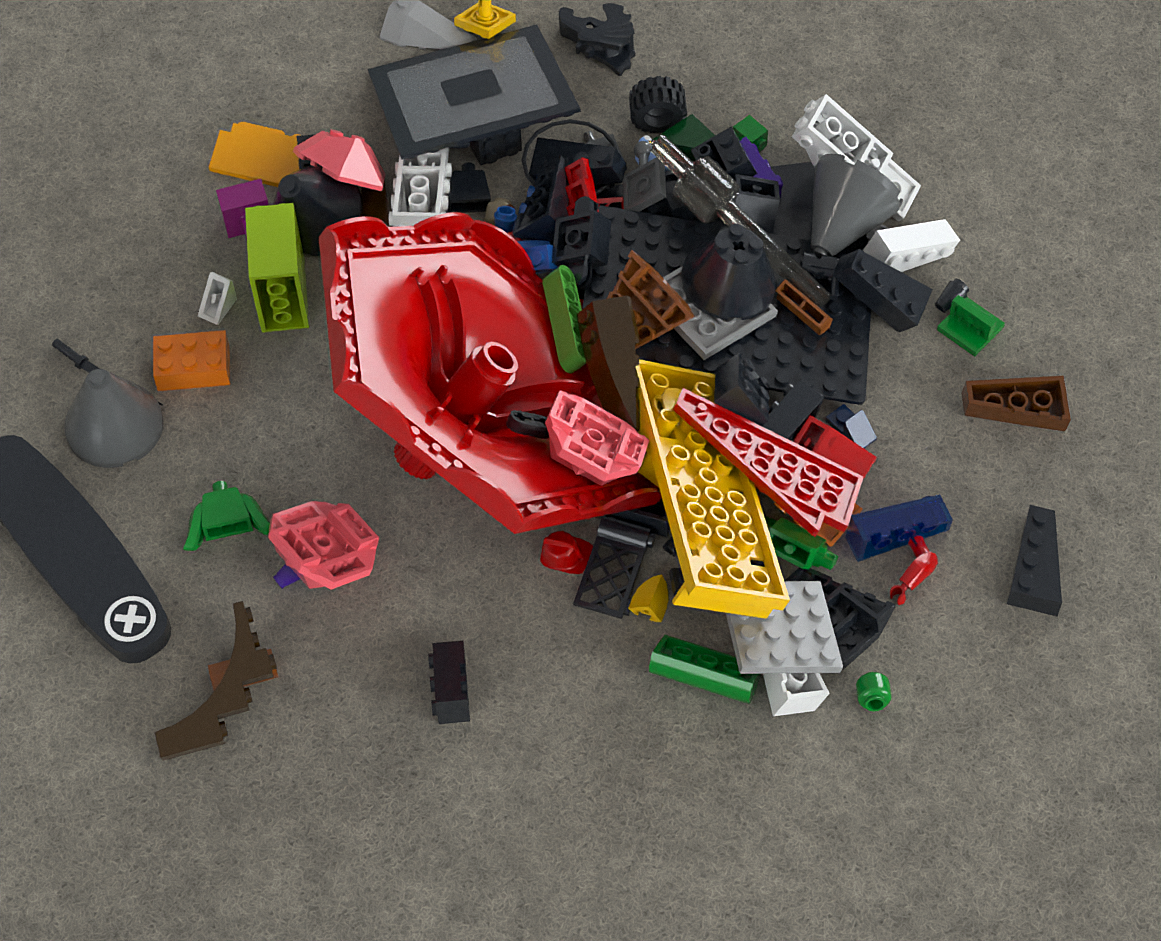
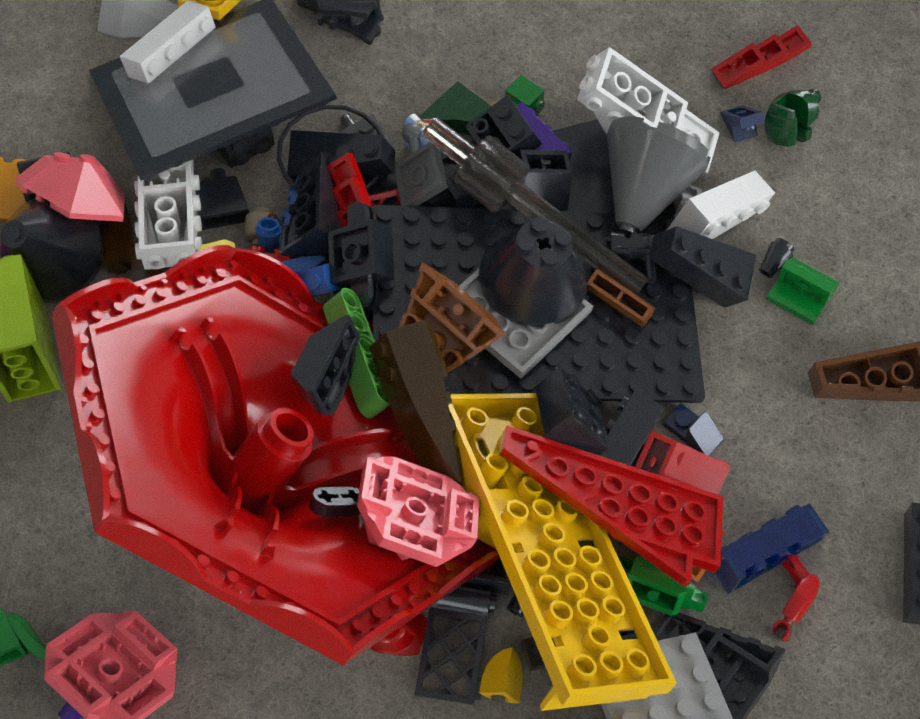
camera: 10 degrees left, 5 degrees up
(440, 51) = (167, 41): none -> white brick
(538, 320) = (327, 365): none -> black wedge
(657, 104) = (418, 75): black tyre -> none
(943, 179) = (742, 122): none -> dark blue slope
(973, 126) = (761, 57): none -> red slope
(988, 178) = (791, 117): none -> dark green piece

